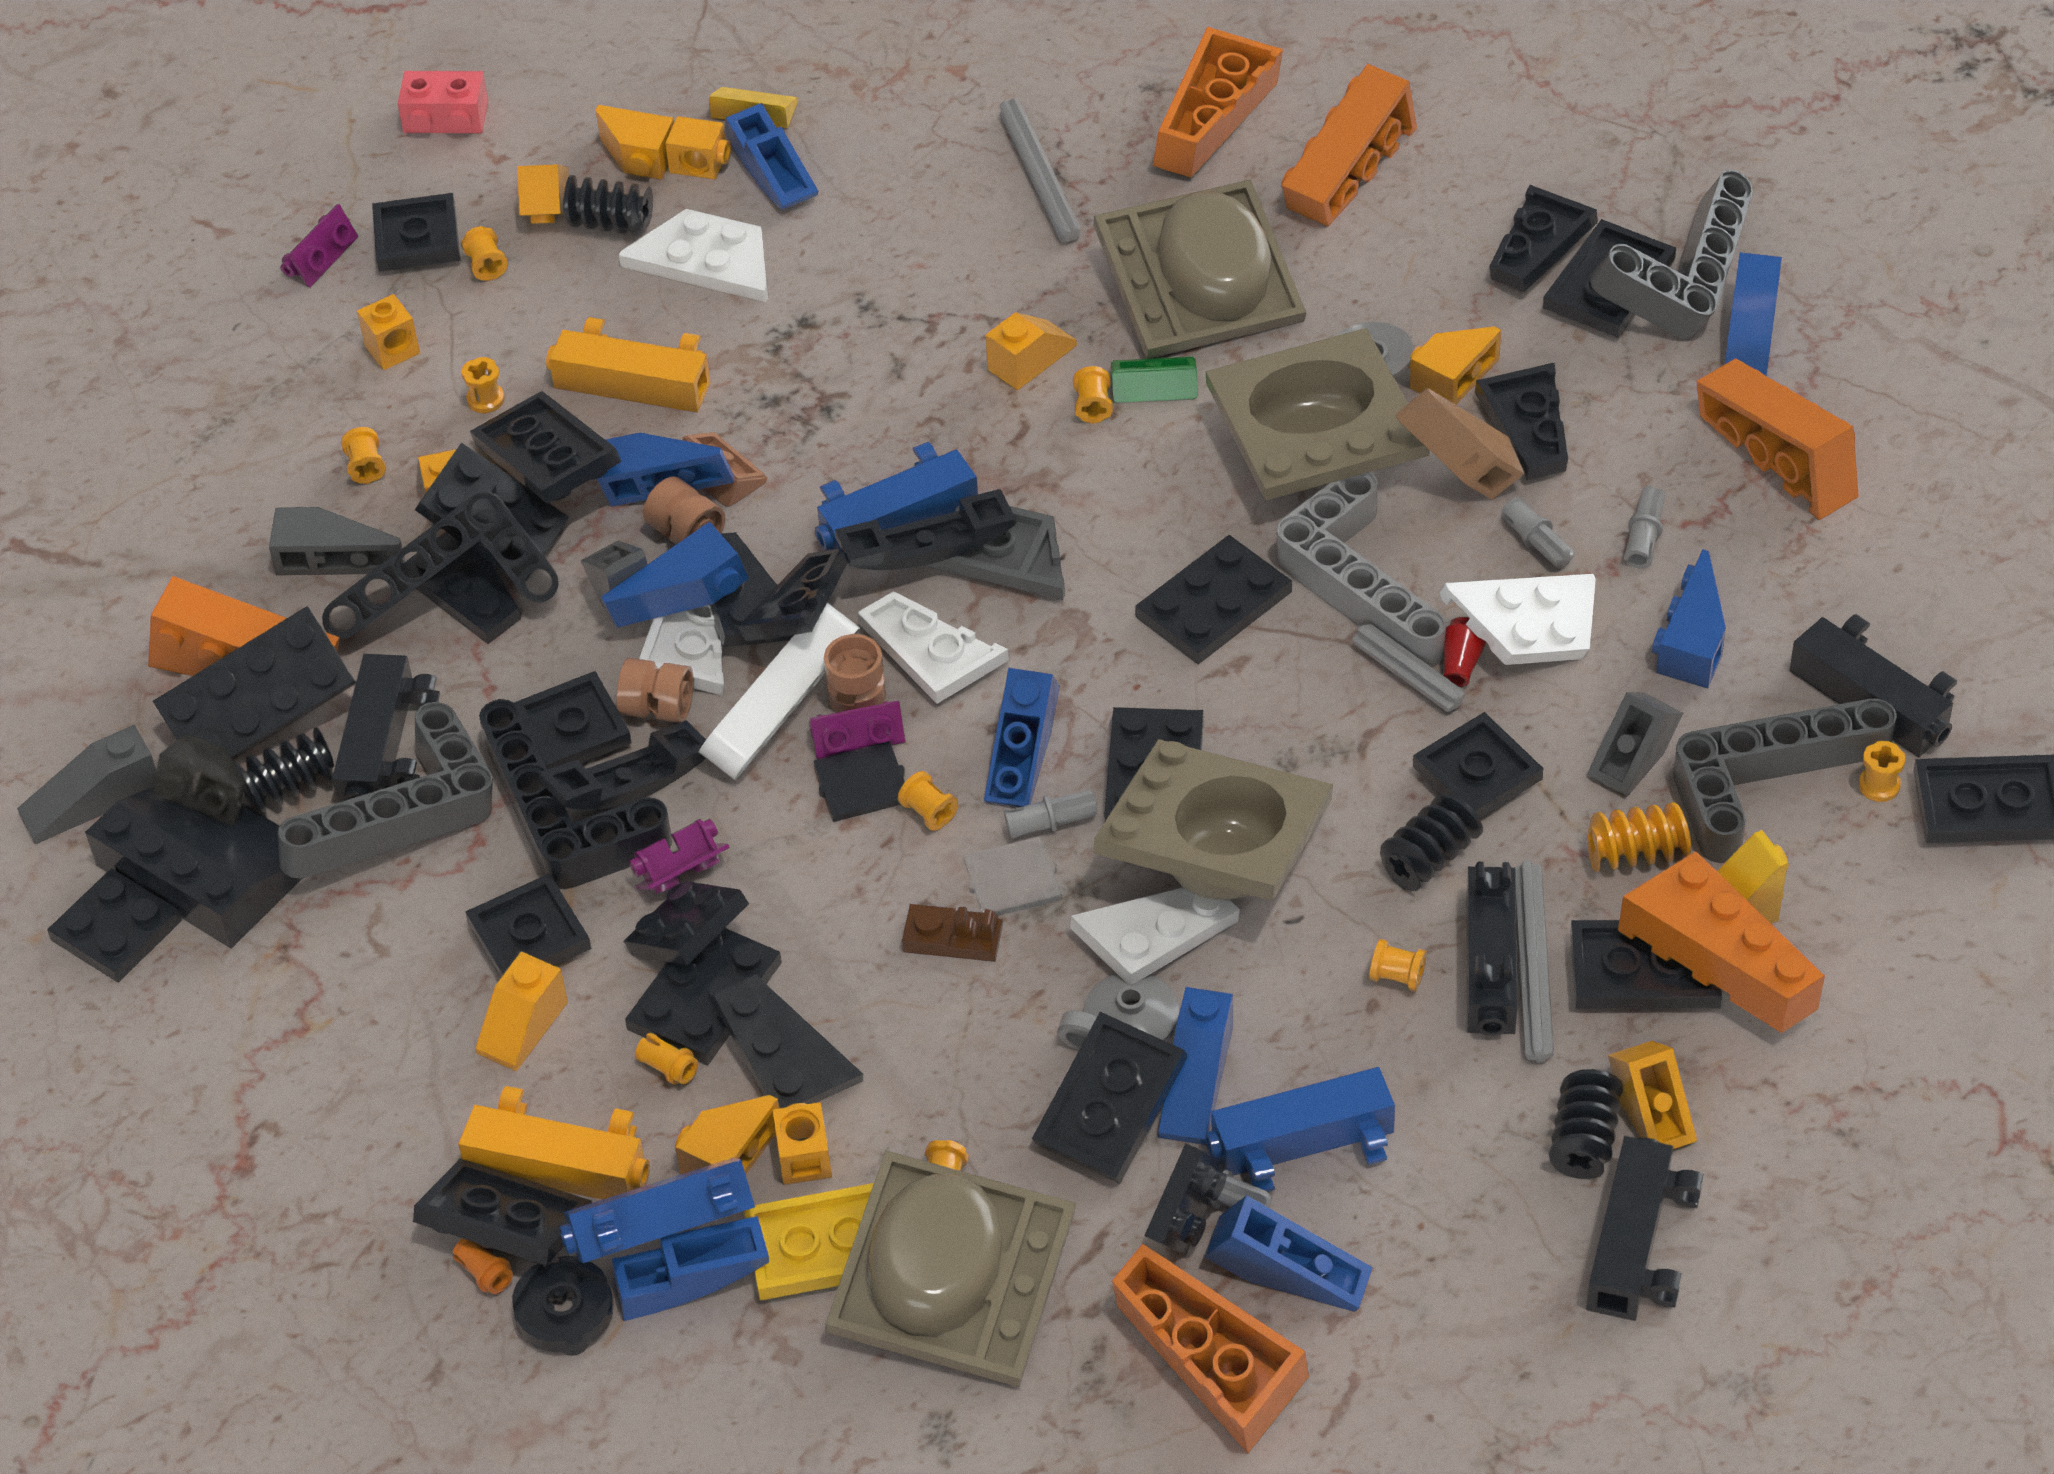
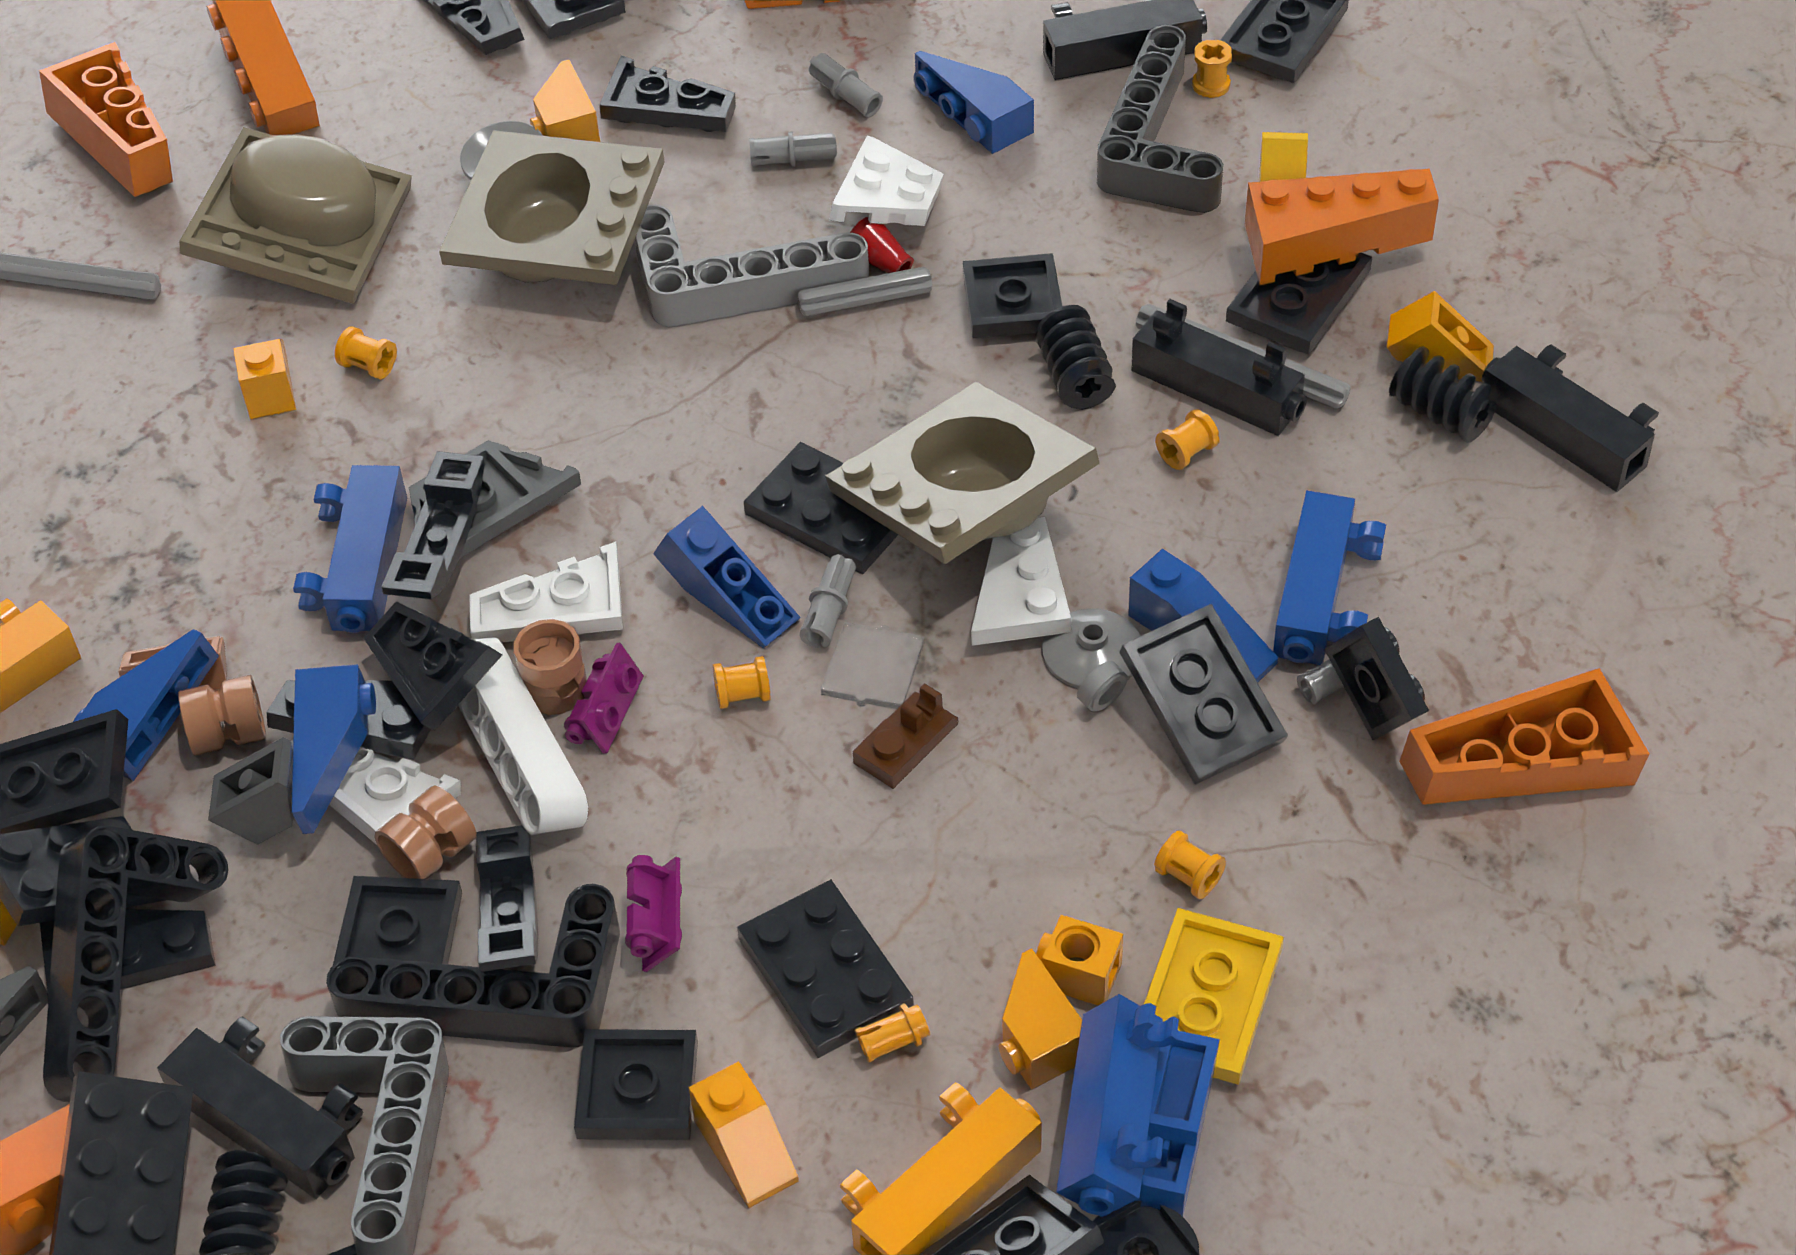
camera: 60 degrees left, 0 degrees up
(685, 922) = (745, 936): black plate -> none
(781, 1047) = (952, 928): black wing -> none
(860, 780) = (664, 729): black piece -> none
(951, 1268) = (1317, 903): dark tan piece -> none
(1154, 379) = (384, 304): green slope -> none
(1213, 599) = (674, 383): black plate -> none
(1285, 1256) = (1458, 651): blue slope -> none
(1463, 443) = (680, 130): medium nougat slope -> none
(1634, 741) = (1068, 189): dark grey slope -> none
(1637, 834) = (1170, 231): light orange piece -> none

